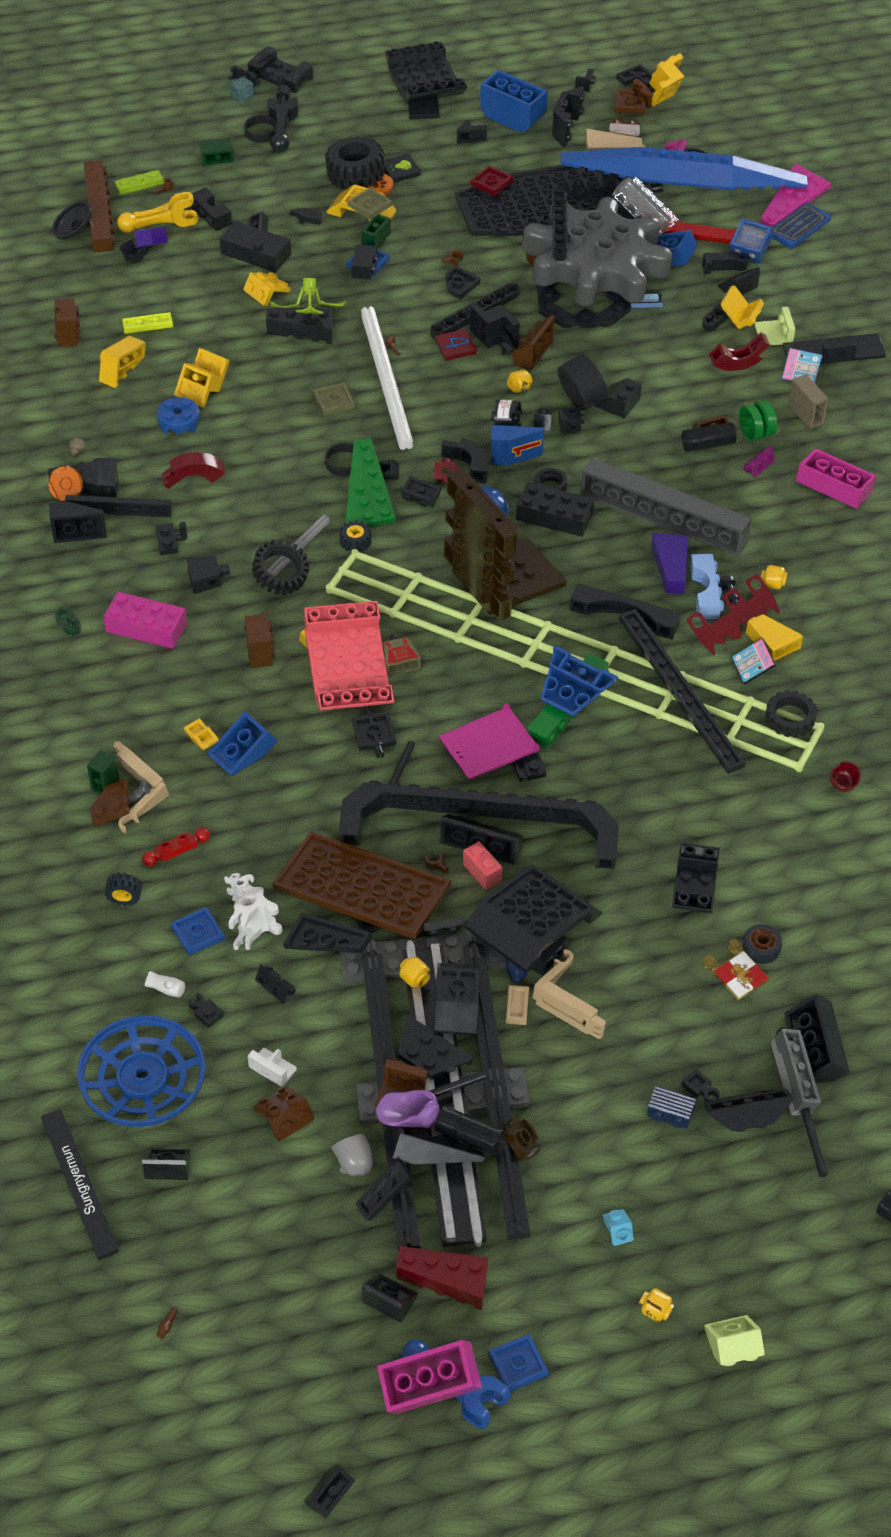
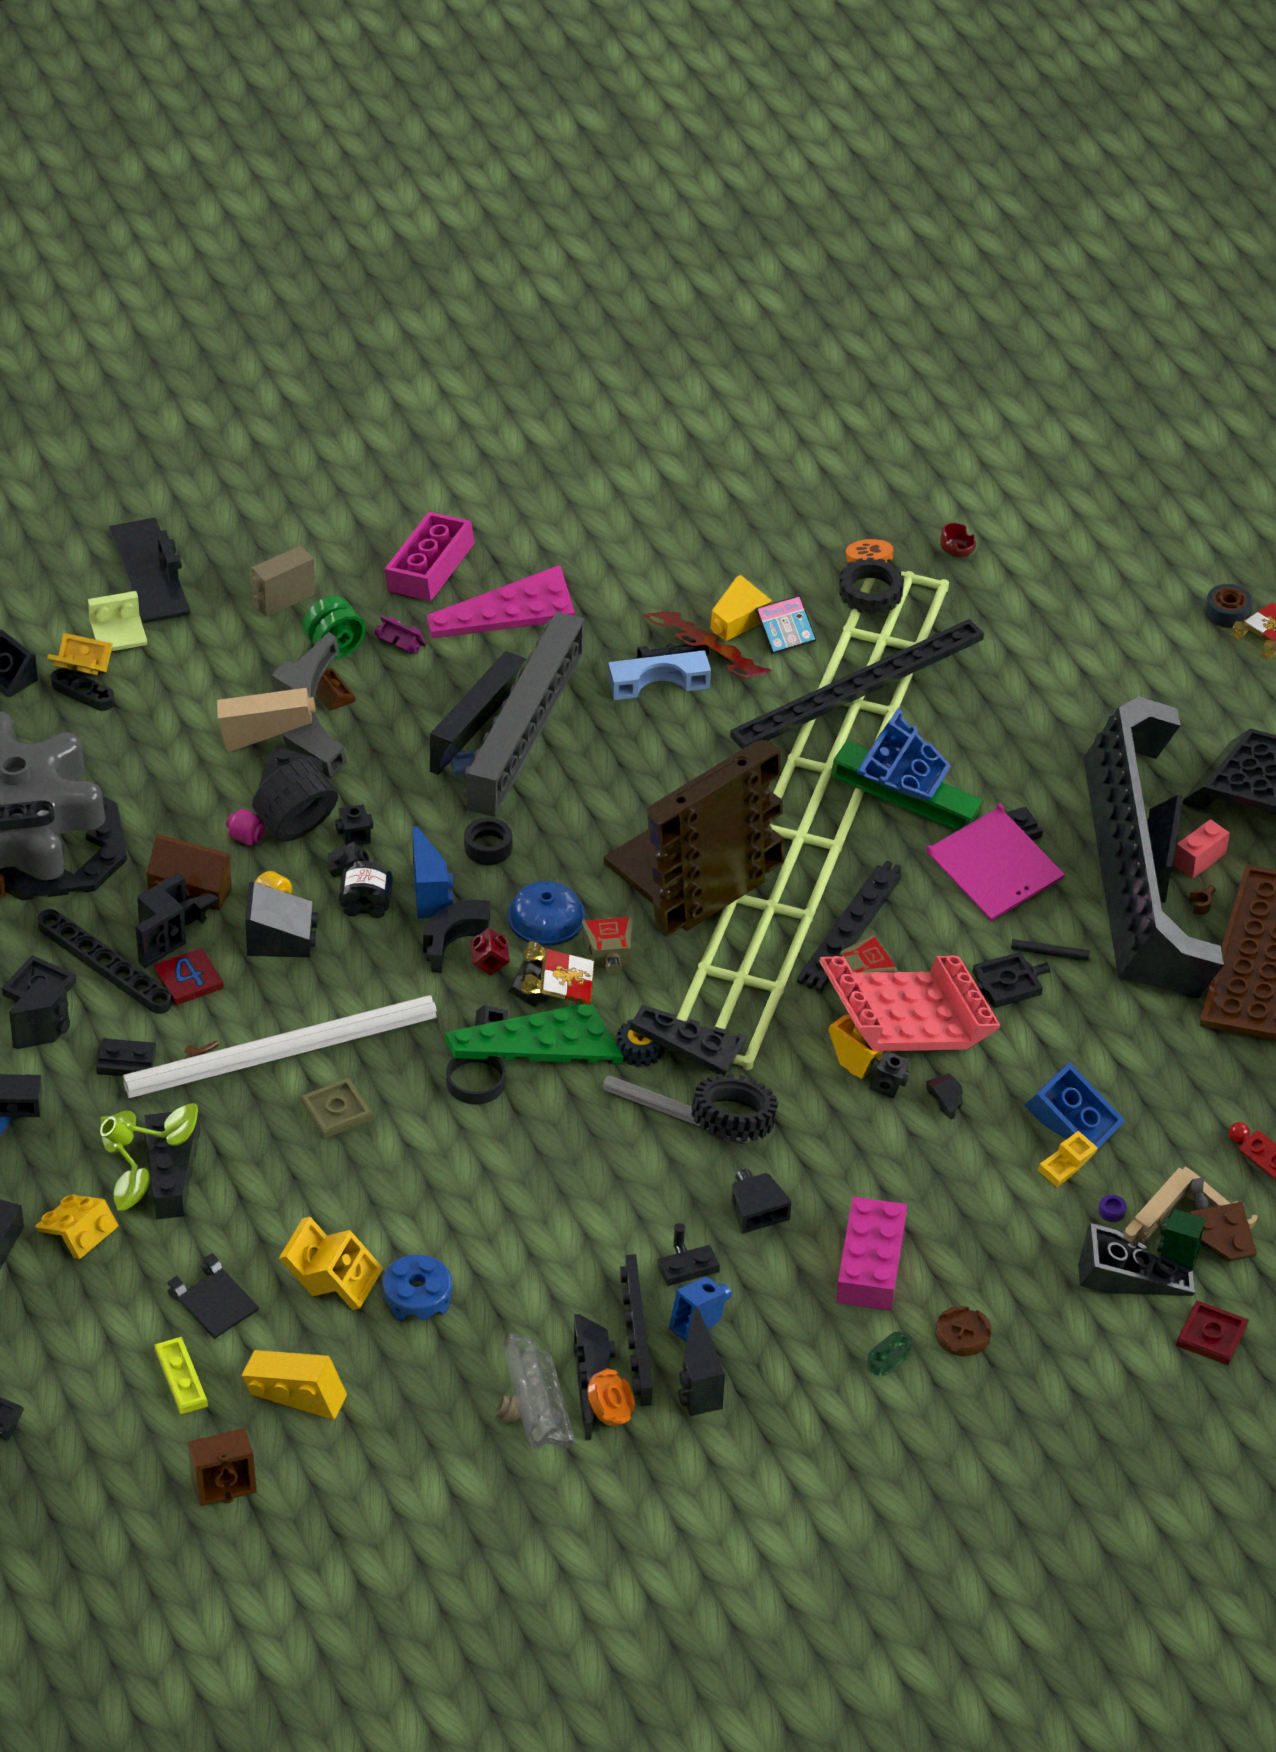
camera: 100 degrees left, 5 degrees down
(35, 788) = (1212, 1332): none -> dark red tile
(71, 449) = (537, 1393): none -> clear brick
(75, 661) = (963, 1331): none -> reddish brown tile
(98, 734) = (1118, 1266): none -> black wedge
(122, 530) = (700, 1294): none -> blue torso
(155, 755) = (1112, 1208): none -> dark purple tile
(193, 464) = (550, 1245): dark red arch -> none
(199, 337) = (214, 1301): none -> black flag
(259, 640) = (889, 1109): reddish brown brick -> none
(275, 682) = (947, 1092): none -> black slope
(294, 649) = (889, 1074): none -> black brick
(341, 554) = (697, 1043): none -> black wing
(393, 316) = (124, 1056): none -> black plate
(413, 500) = (561, 975): none -> flag
(425, 274) = (39, 1015): none -> black slope
(438, 530) = (608, 942): none -> olive torso
(449, 661) = (852, 922): none -> black hinge
(485, 375) = (278, 923): none -> slope
(554, 509) = (544, 830): black brick -> none
(590, 600) = (733, 710): black arch -> none
(647, 465) = (473, 711): none -> black arch
(665, 372) = (263, 716): none -> tan slope
(671, 560) = (621, 708): dark purple slope -> none
(682, 402) = (306, 673): none -> dark grey arch
(696, 877) = (1165, 666): black slope -> none
(704, 437) = (365, 682): black piece -> none
(741, 358) = (185, 660): dark red arch -> none
(774, 577) = (627, 610): yellow head -> none
(789, 525) = (512, 606): none -> dark pink wing
(801, 363) = (200, 595): piece -> none
(834, 723) = (869, 548): none -> orange tile

